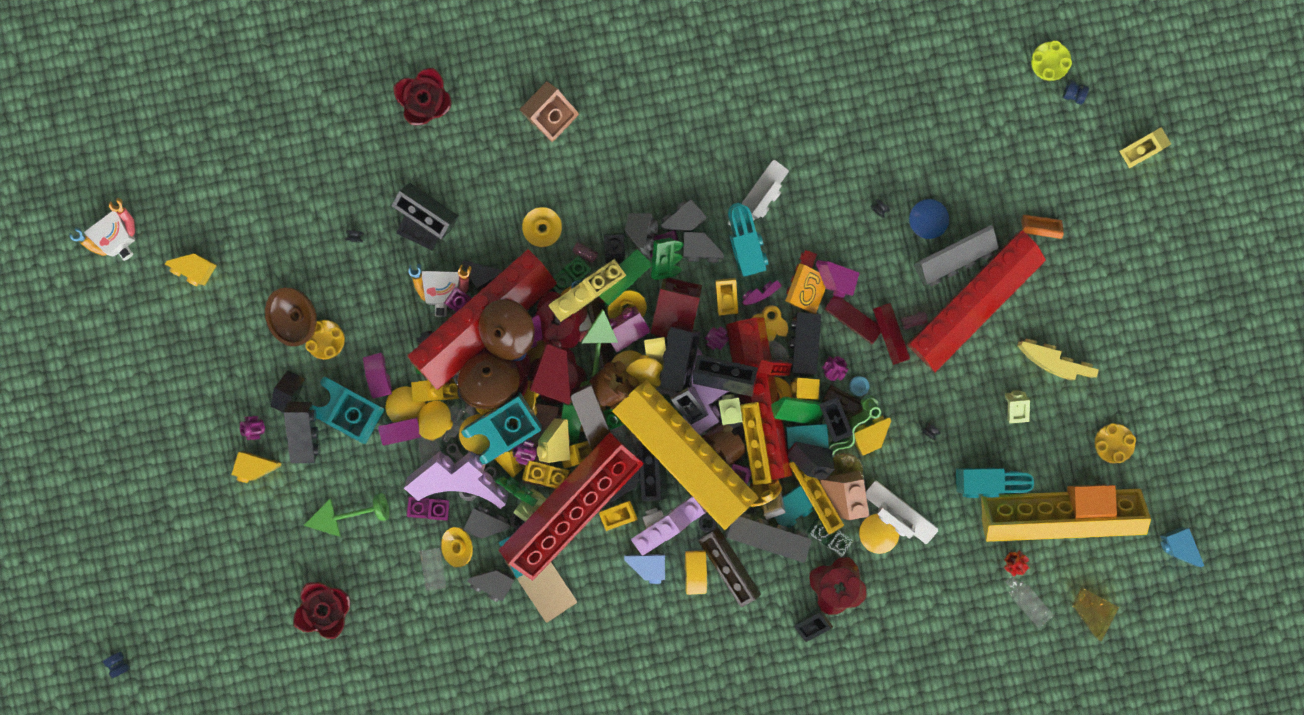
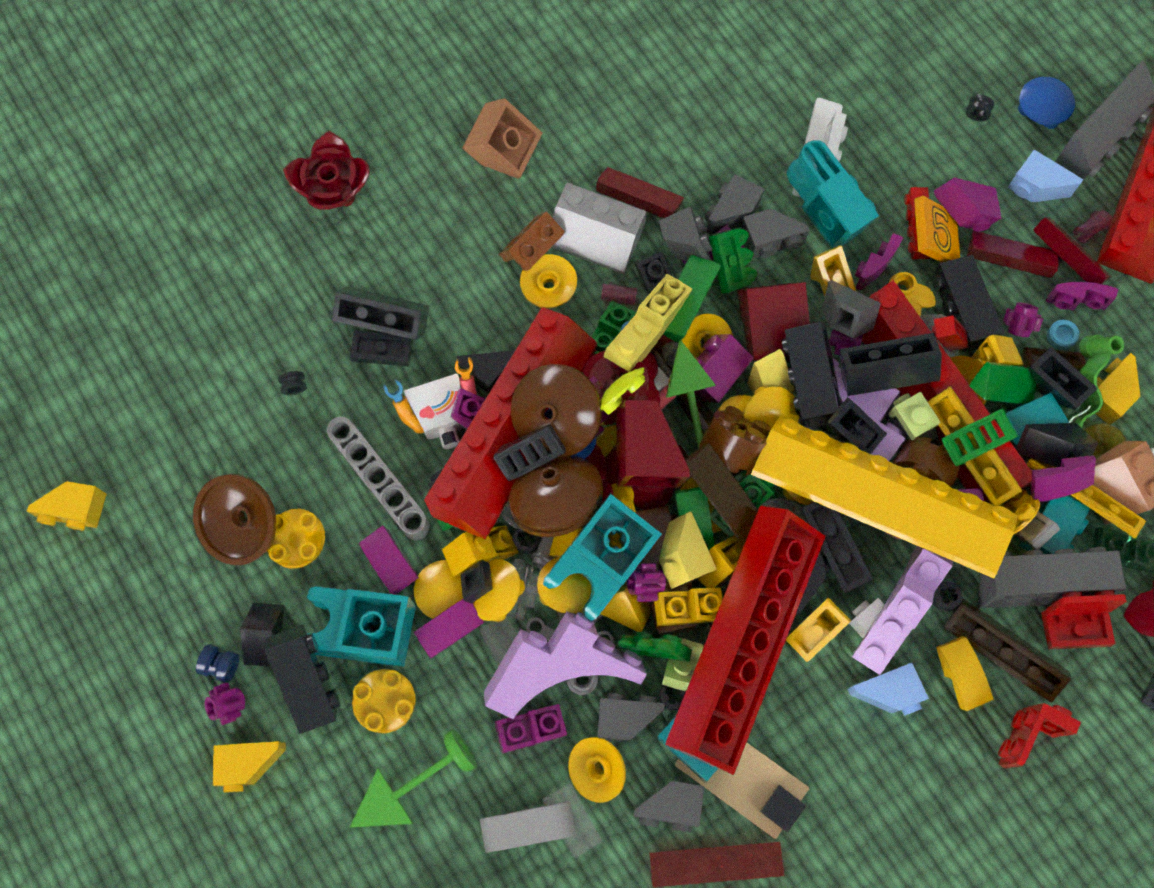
camera: 20 degrees left, 15 degrees down
(254, 401) = (217, 663): none -> dark blue wheel
(346, 460) = (383, 701): none -> yellow dish
(381, 313) = (371, 466): none -> light grey beam
(405, 564) = (528, 827): none -> light grey beam
(424, 412) = (476, 581): none -> black tile
(478, 349) = (511, 460): none -> black slope
(506, 624) = (716, 864): none -> clear red tile
(541, 195) = (533, 241): none -> dark orange bracket
(552, 330) = (630, 381): none -> neon yellow dish
(556, 608) = (783, 808): none -> black tile
(586, 201) = (598, 228): none -> light grey slope
(597, 308) = (669, 352): none -> dark grey hinge
(626, 183) = (638, 193): none -> dark red slope
(721, 325) = (849, 310): none -> dark grey slope
(730, 617) = (1027, 723): none -> red bracket
(745, 445) = (954, 450): none -> green slope
(775, 570) = (1081, 620): none -> red bracket
(807, 485) = (1062, 481): none -> magenta slope
(874, 363) = (1071, 294): none -> magenta slope
(895, 276) = (1043, 180): none -> light blue slope

